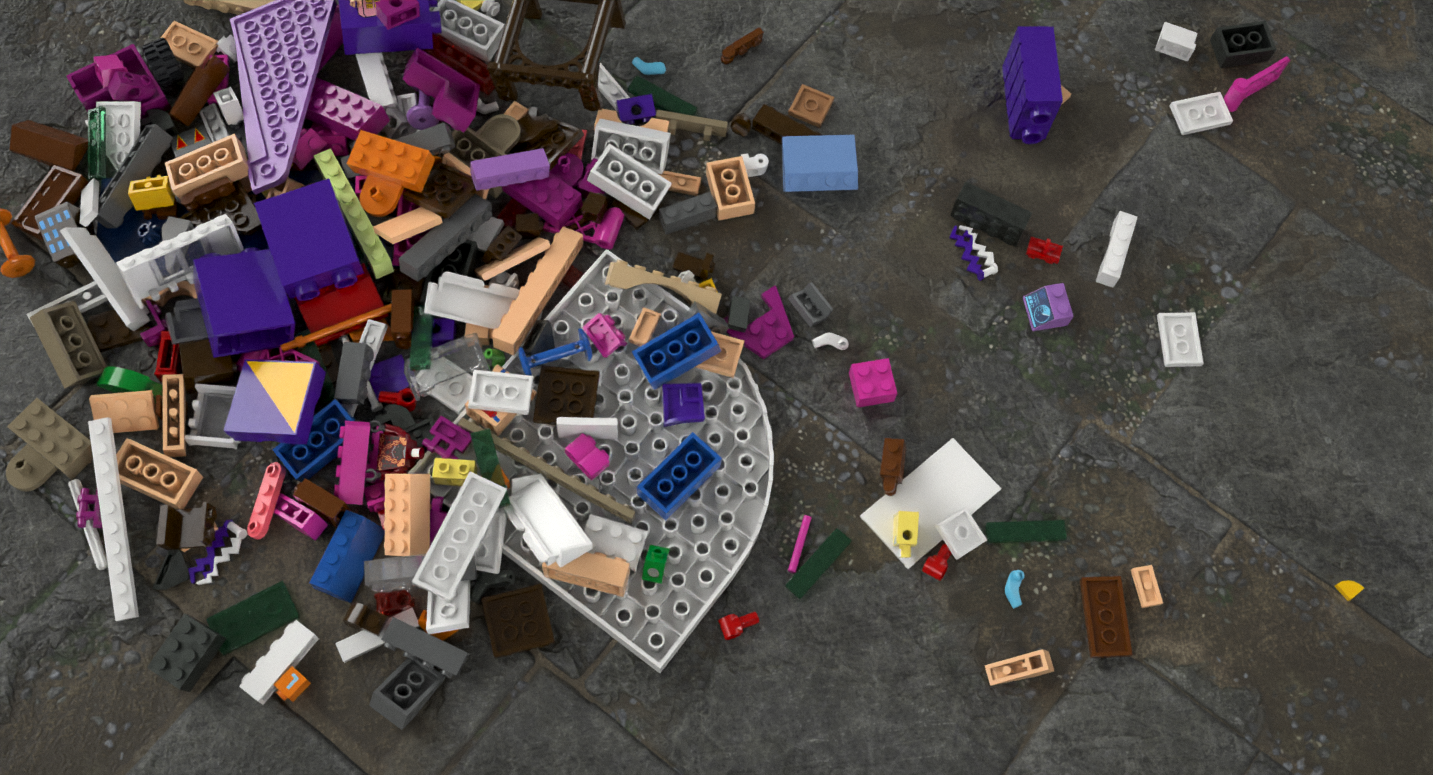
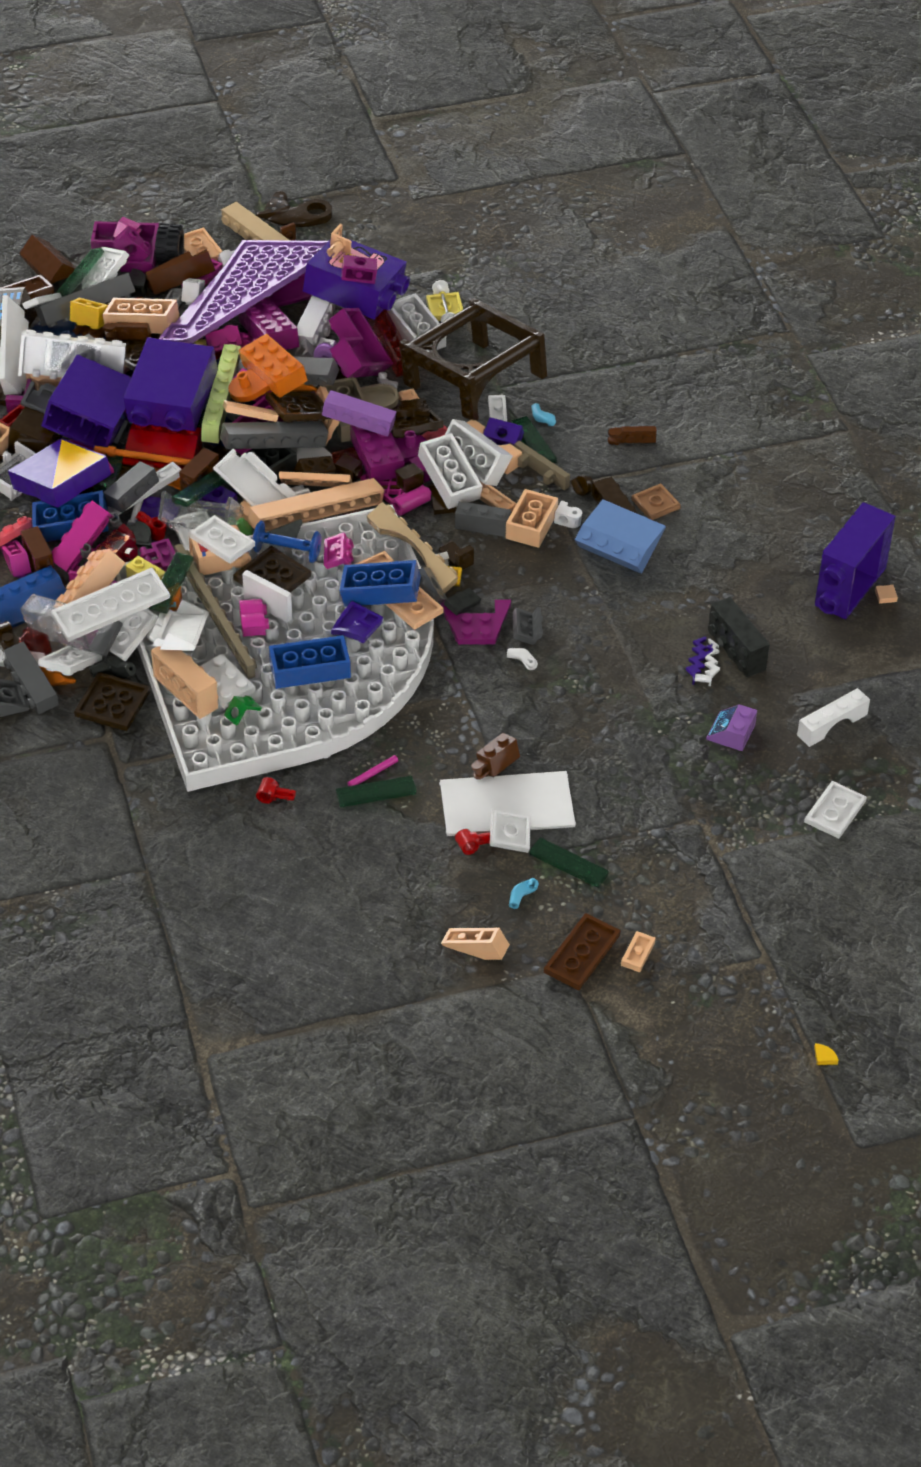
camera: 40 degrees right, 20 degrees down
(872, 382) = (530, 698): dark pink brick -> none
(905, 523) = (462, 799): light yellow torso -> none
(1044, 250) = (765, 685): red hips -> none

